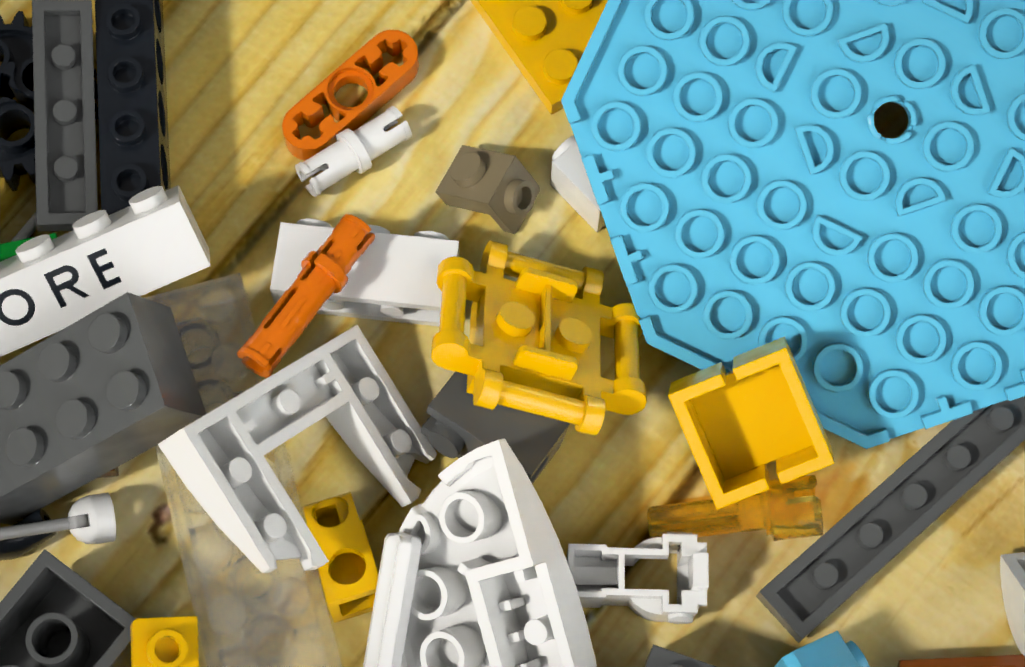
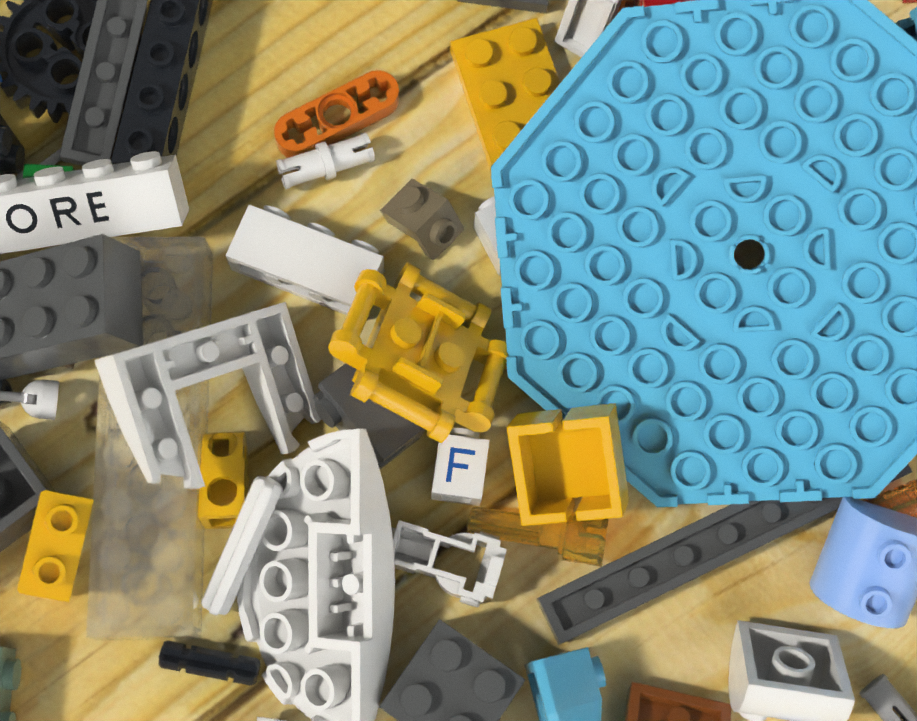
camera: 10 degrees right, 5 degrees up
(321, 275) = (263, 258): orange pin -> none
(622, 466) = (460, 468): none -> white brick

